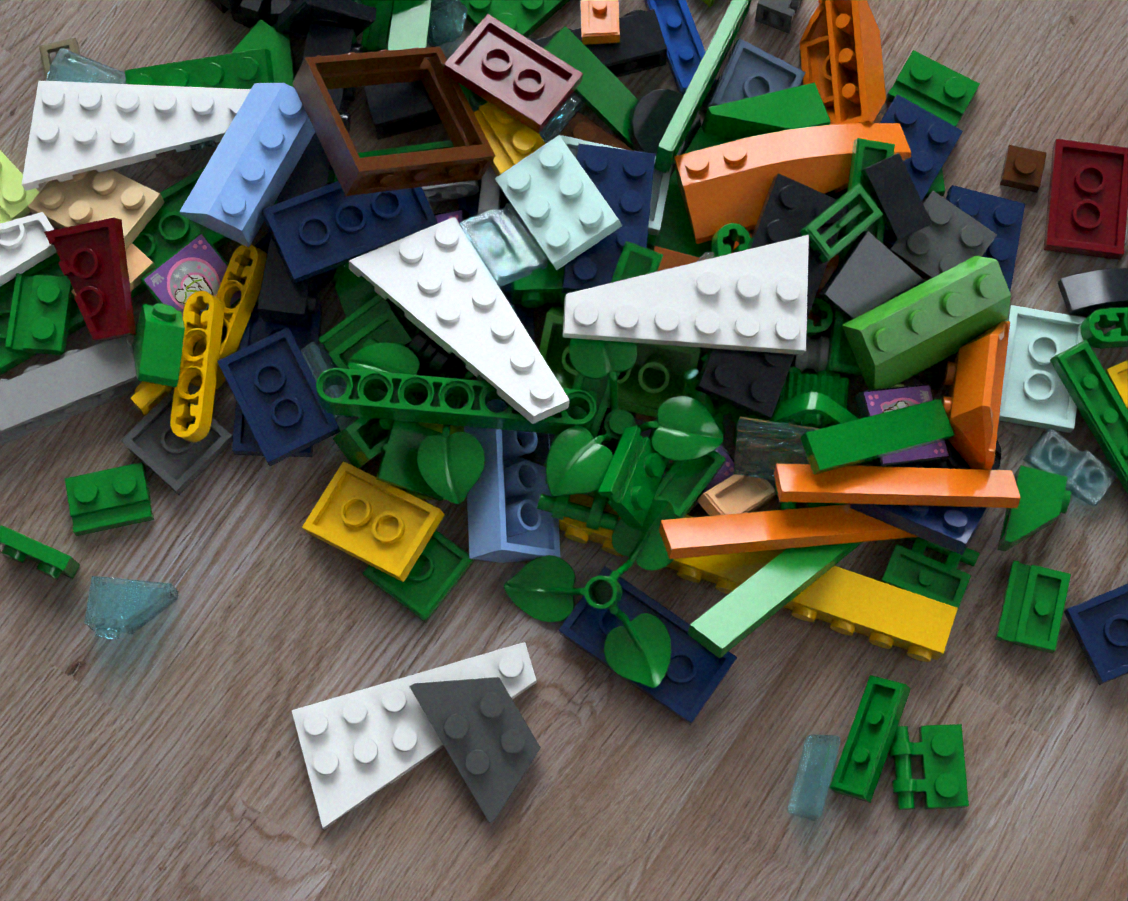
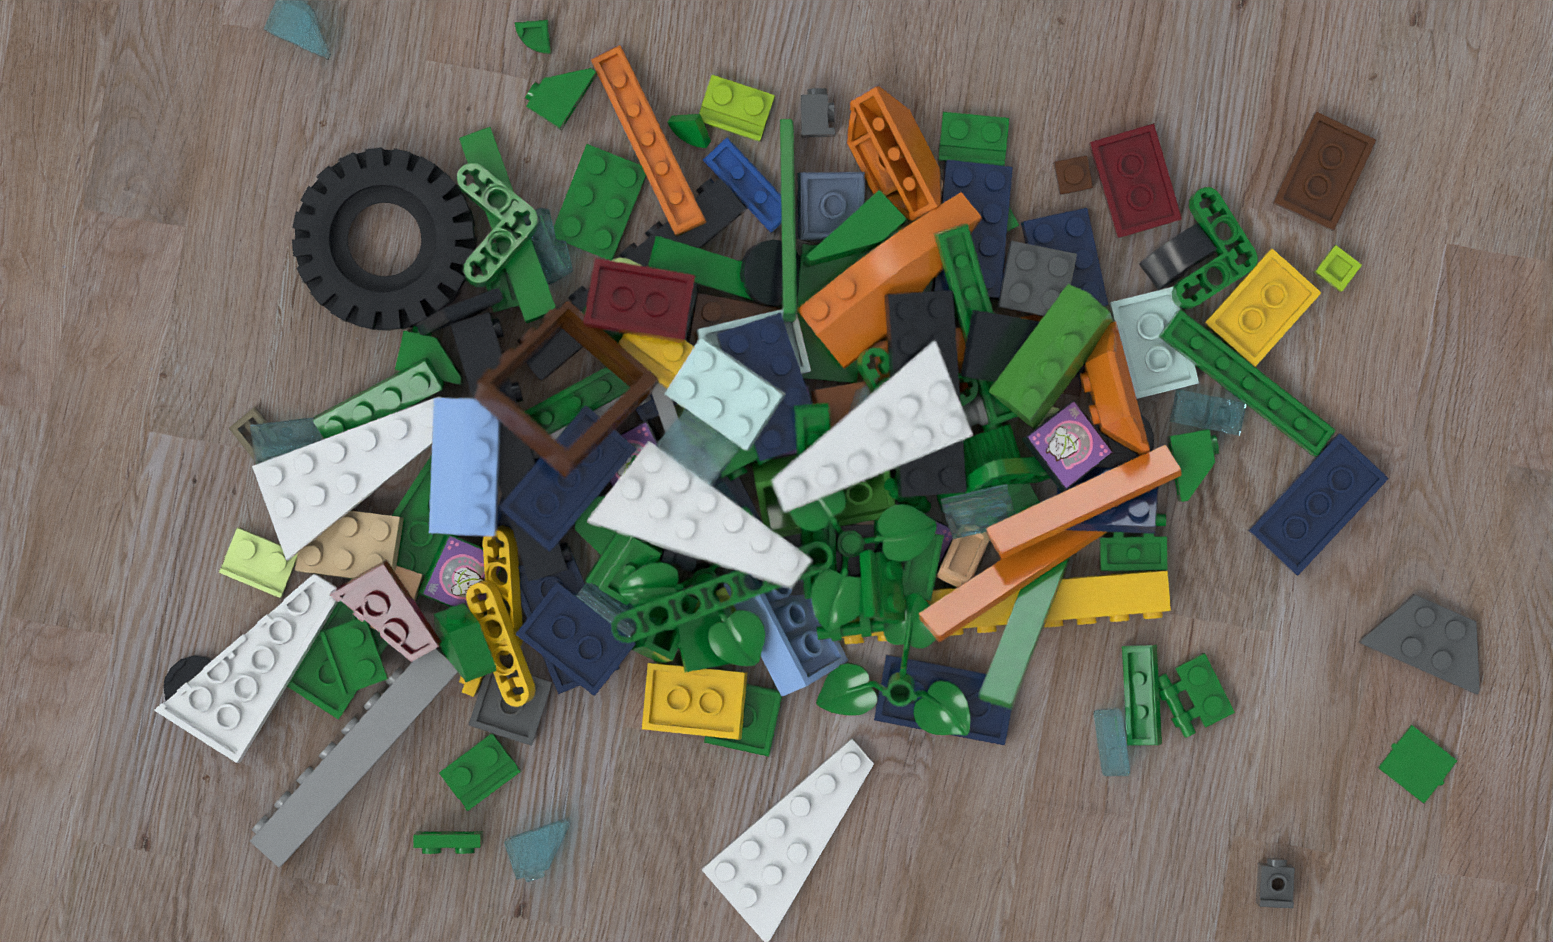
camera: 20 degrees left, 15 degrees up
(481, 735) = (853, 825): dark grey wing -> none
(819, 241) = (942, 309): green tile -> none
(876, 436) = (1053, 470): green tile -> none
(896, 197) = (987, 268): black tile -> none
(1033, 607) = (1222, 538): green plate -> none

